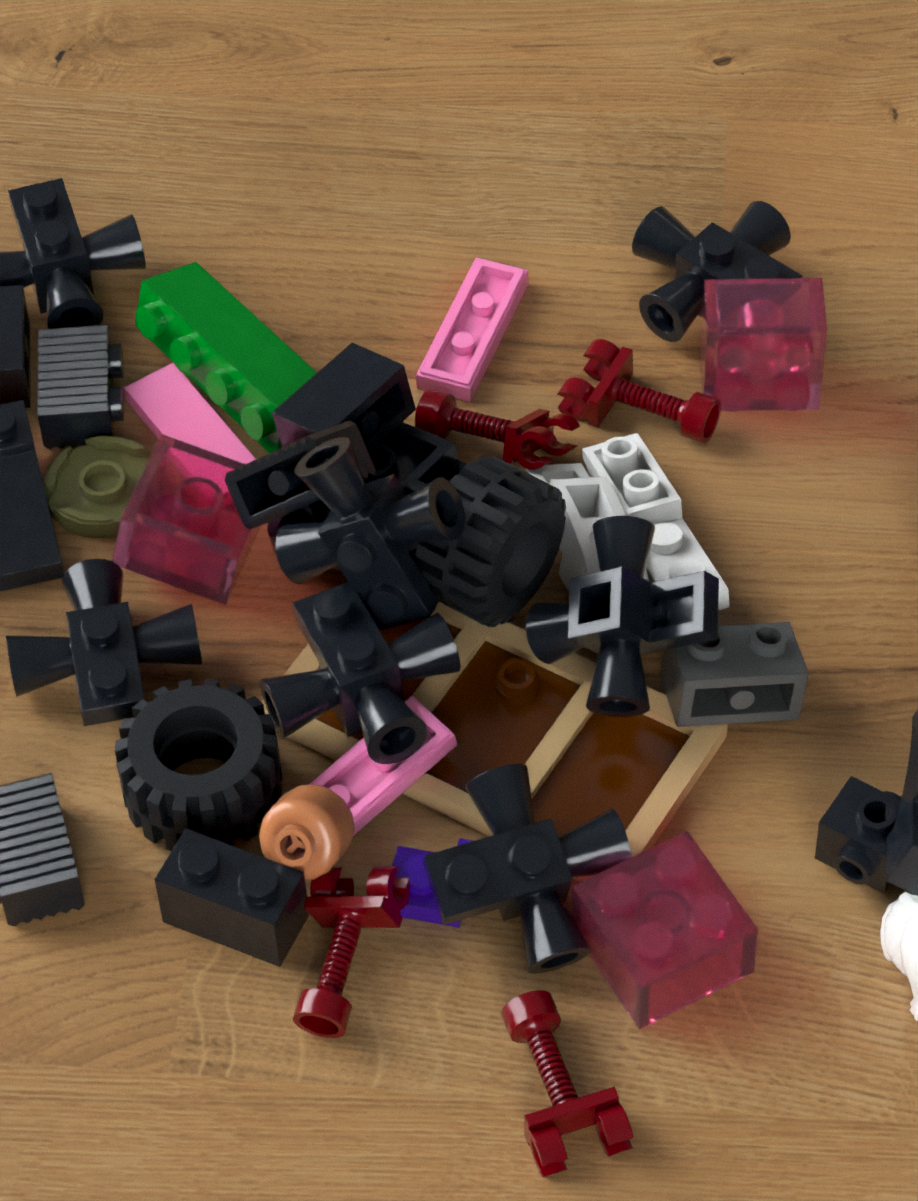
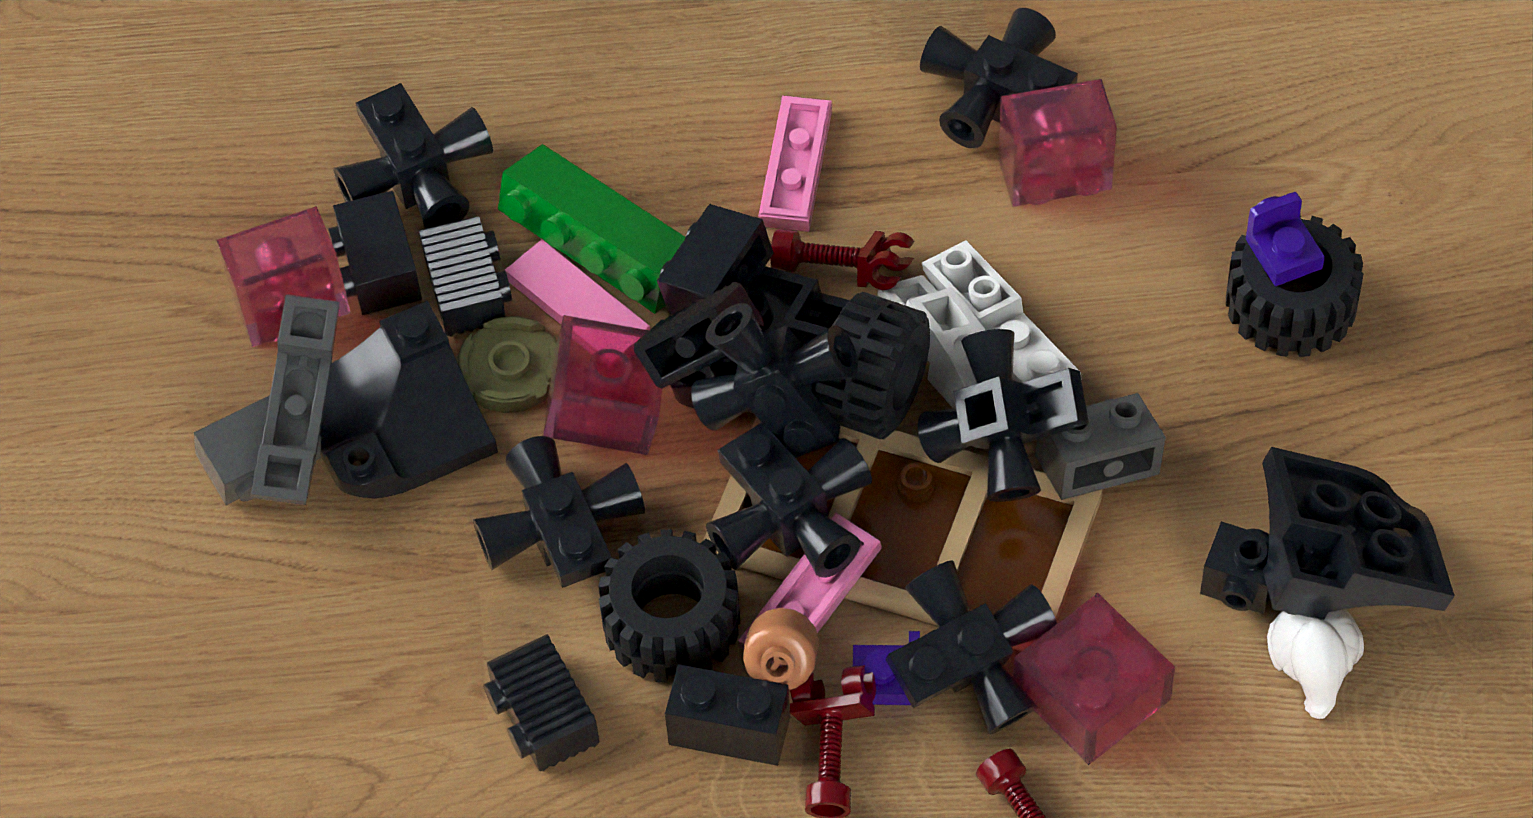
camera: 10 degrees left, 5 degrees up
(614, 370) = (925, 178): dark red bar -> none

